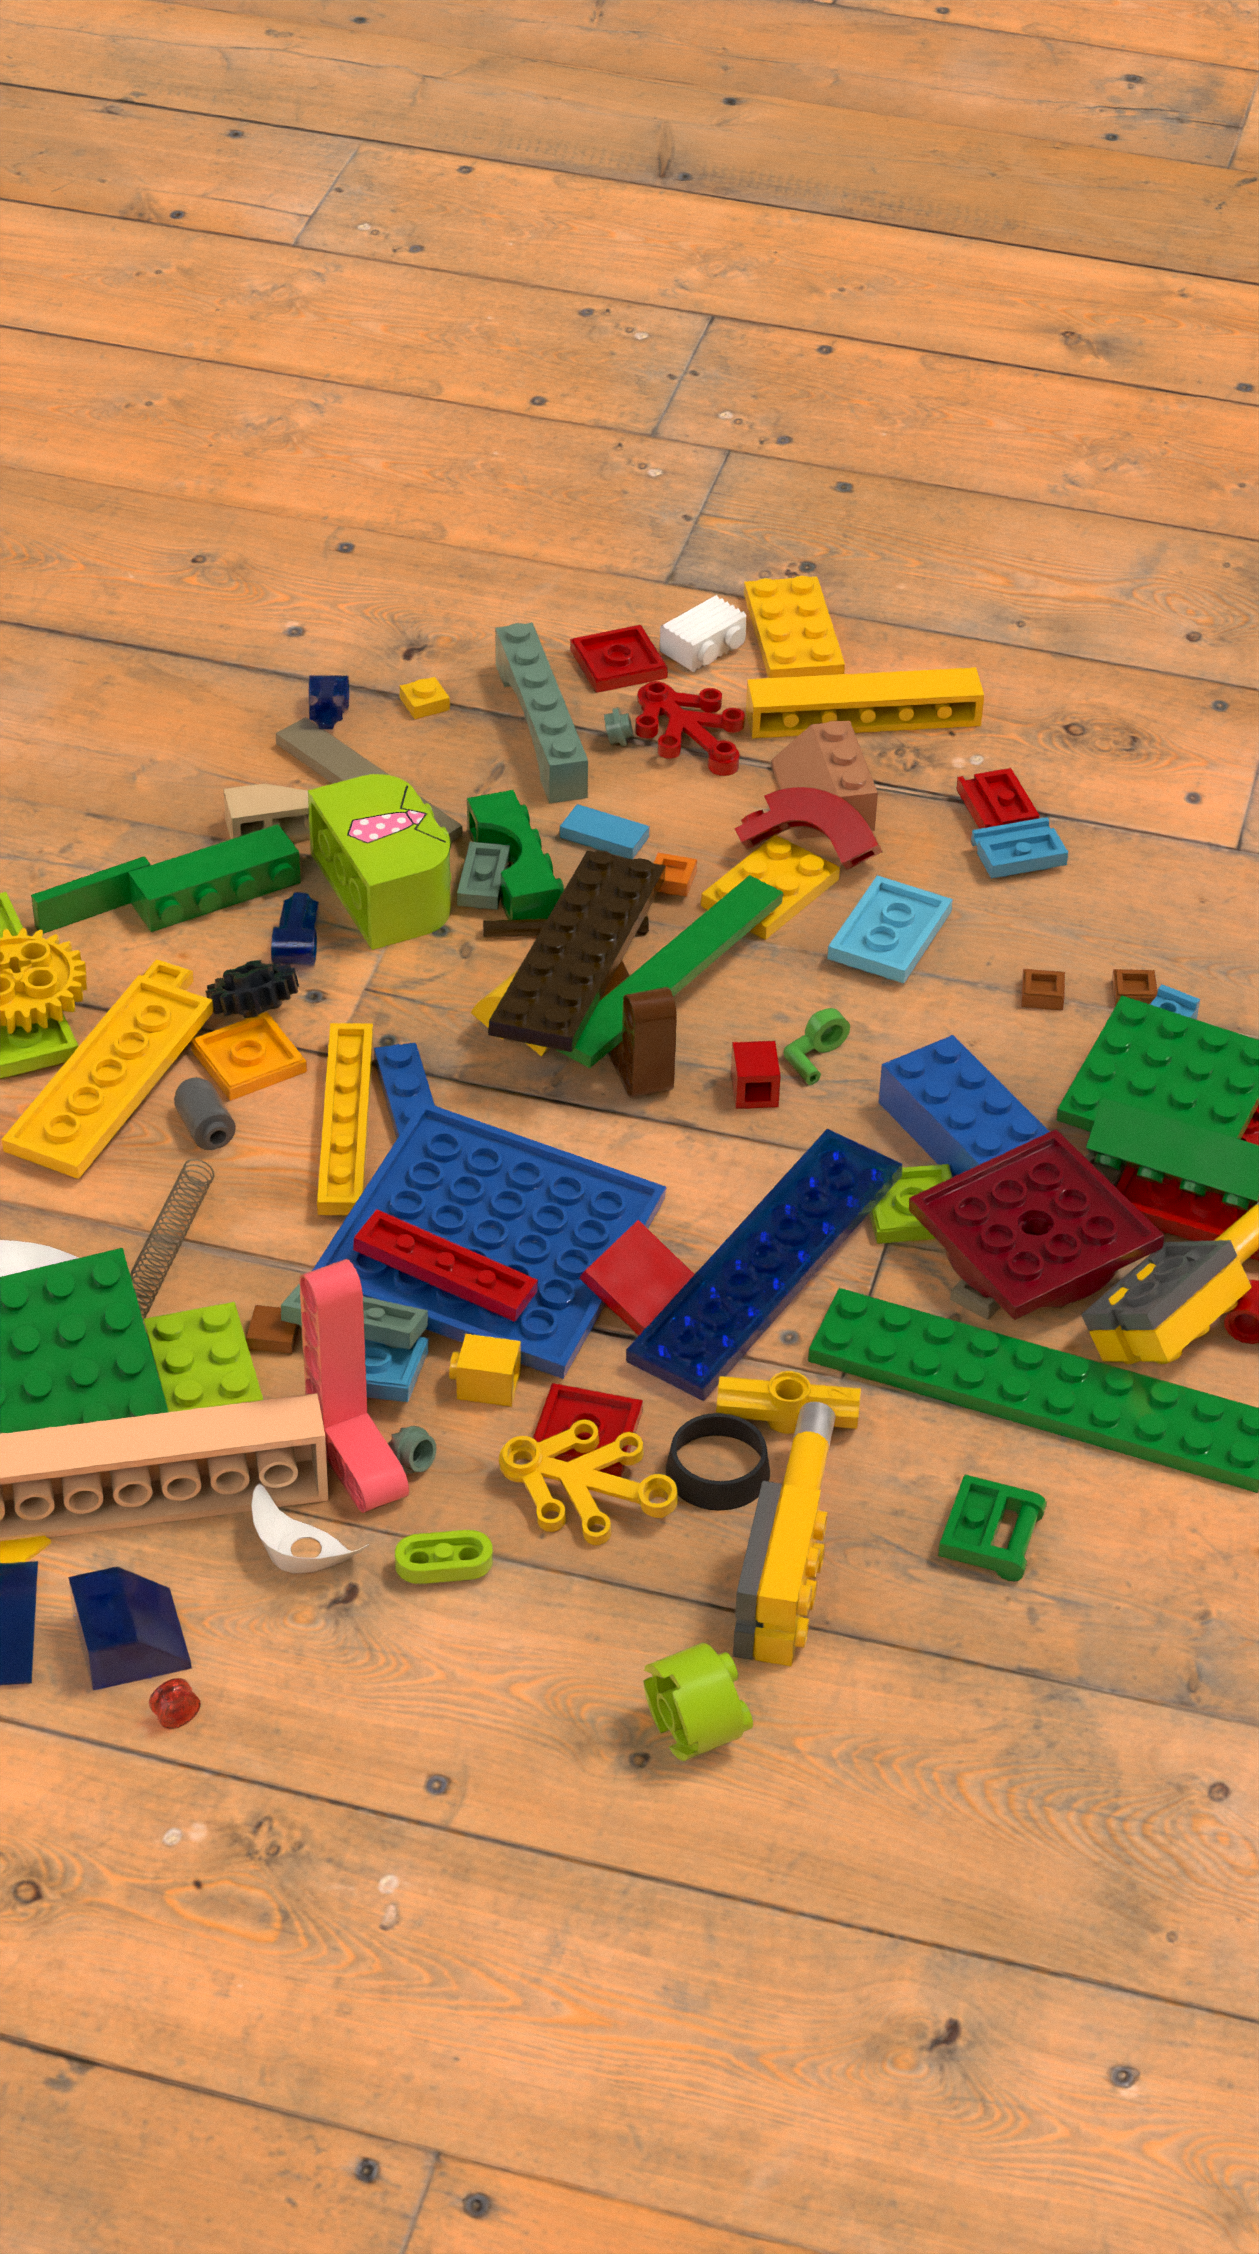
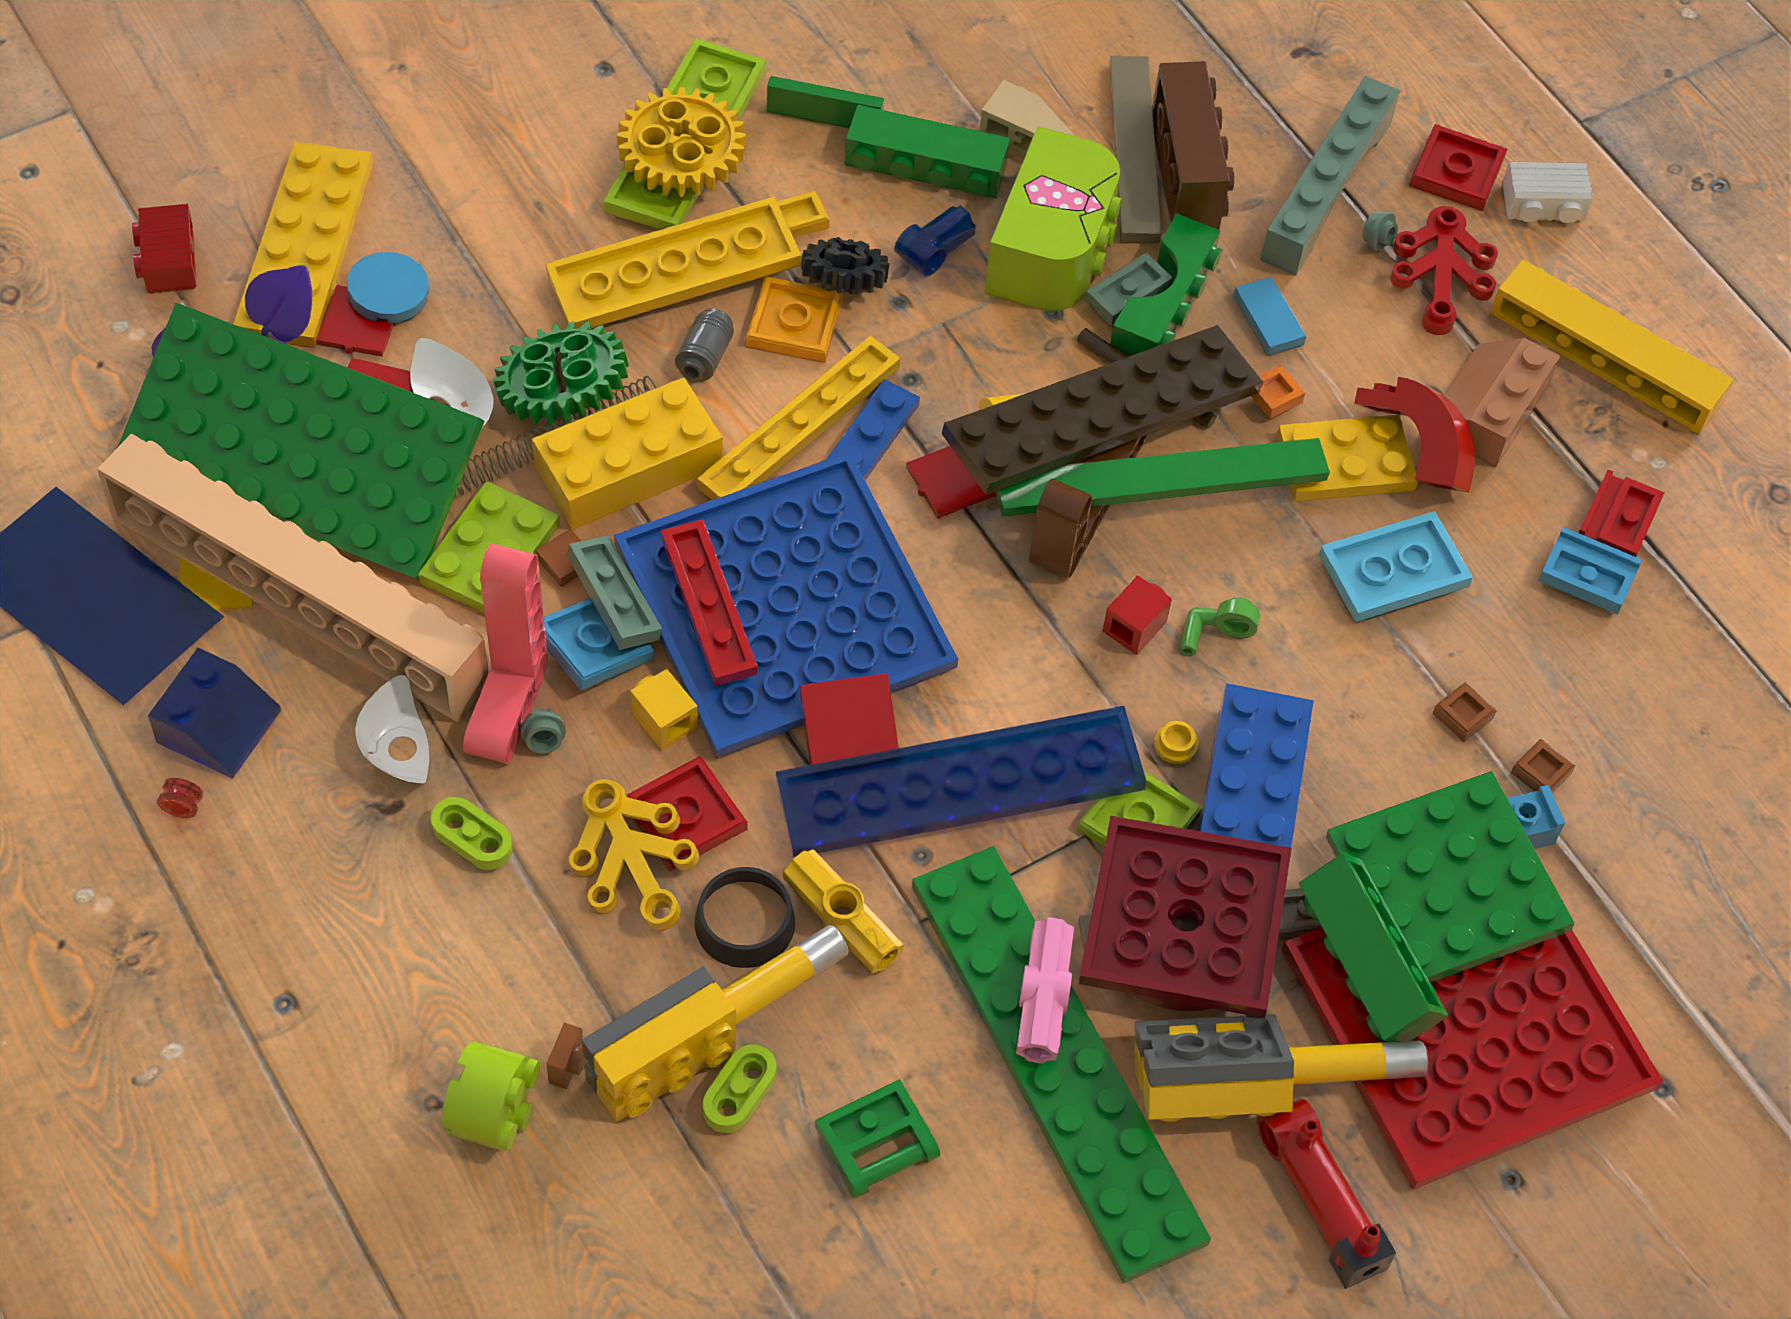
camera: 40 degrees right, 15 degrees up
(116, 1200) = (590, 365): none -> green gear
(239, 1222) = (627, 452): none -> yellow brick
(328, 699) = (1181, 45): clear blue piece -> none
(422, 746) = (1190, 143): none -> reddish brown brick
(424, 697) = (1263, 100): yellow plate -> none
(505, 1081) = (945, 482): none -> red piece
(704, 1628) = (566, 1056): none -> dark orange plate
(793, 627) = (1636, 236): yellow plate -> none
(863, 1577) = (737, 1090): none -> lime plate
(880, 1135) = (1176, 742): none -> yellow plate
(999, 1338) = (1045, 990): none -> bright pink piece

